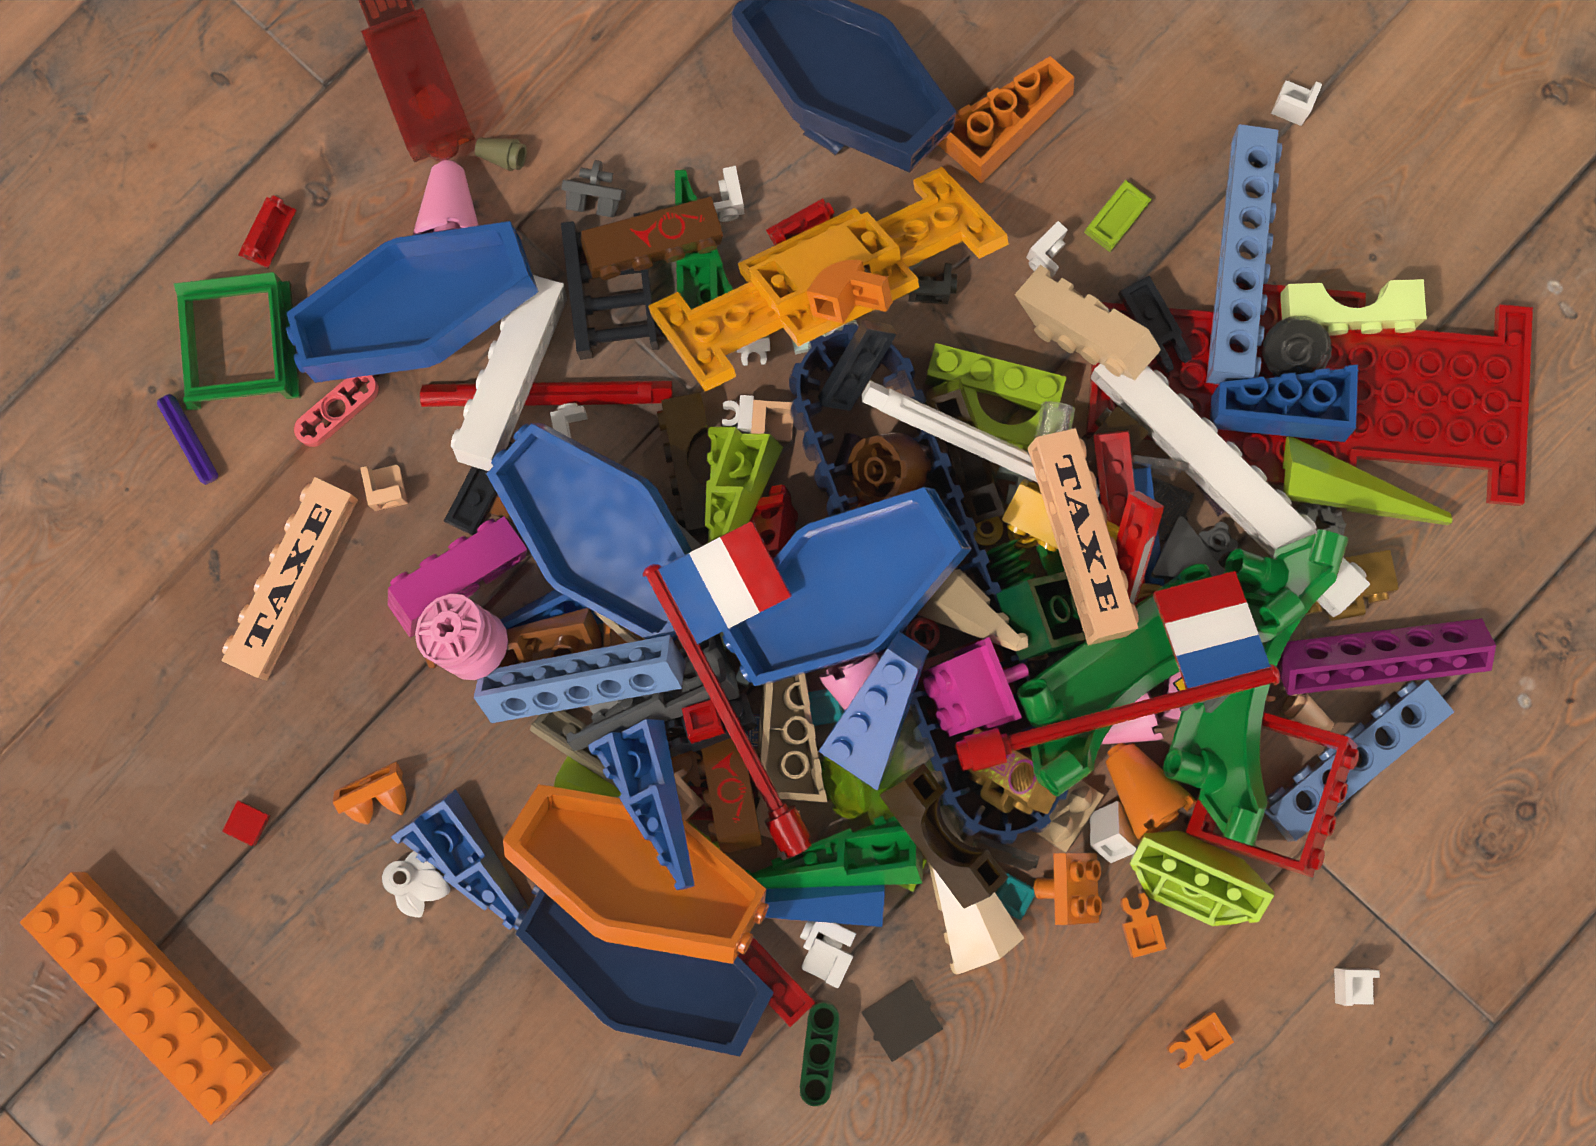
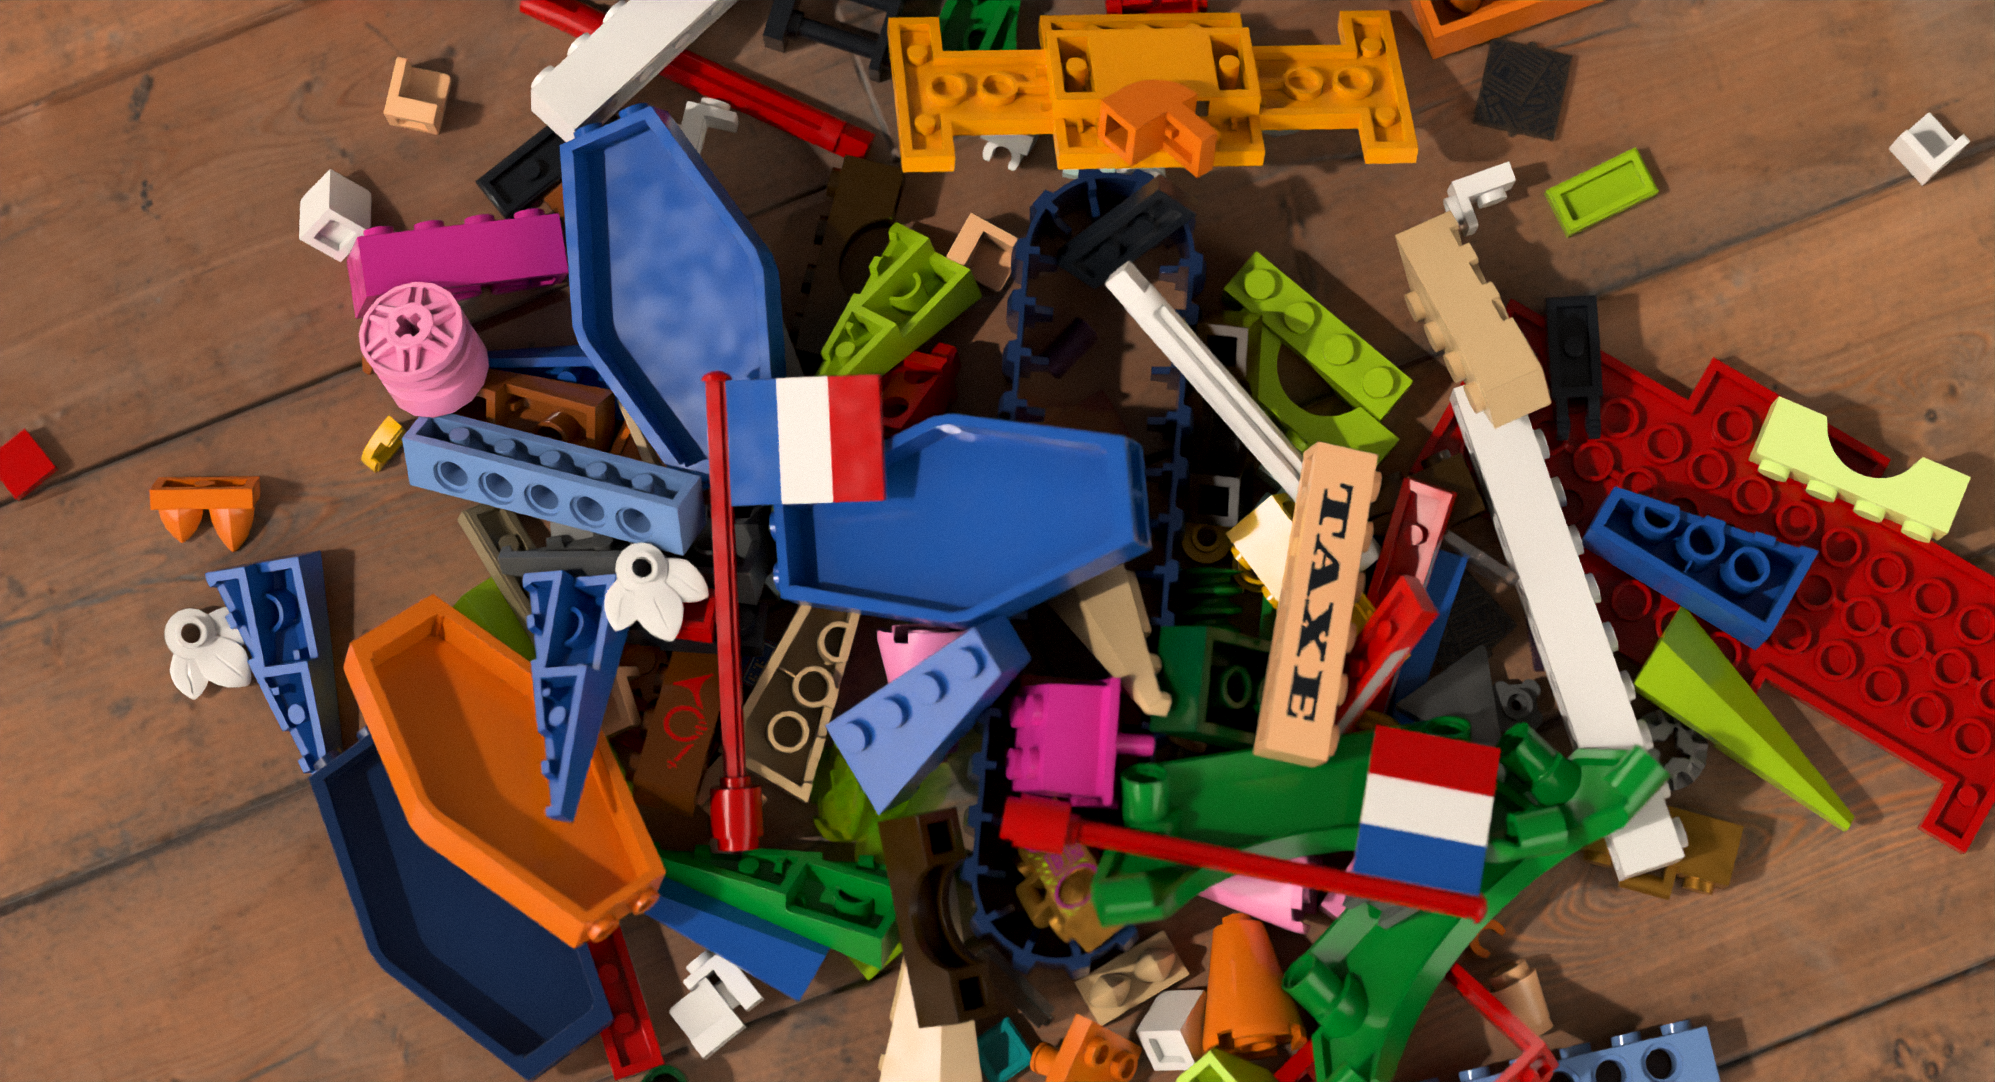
camera: 25 degrees right, 0 degrees up
(289, 579) = (232, 162): light nougat brick -> none
(367, 581) = (334, 215): none -> white panel
(463, 706) = (383, 444): none -> yellow tile
(677, 723) = (656, 598): none -> white plate
(743, 414) = (949, 225): white tile -> none
(824, 707) = (862, 674): teal tile -> none
(887, 466) = (1105, 388): reddish brown brick -> none
(928, 629) = (1059, 636): red cone -> none
(935, 291) = (1286, 173): pearl dark grey bracket -> none
(1041, 177) = (1522, 89): none -> clear smoke piece
(1054, 418) = (1366, 430): clear brick -> none
(1247, 146) = (1831, 181): medium blue brick -> none
(1296, 346) = (1750, 488): clear smoke tile -> none
(1386, 656) = (1666, 969): magenta brick -> none

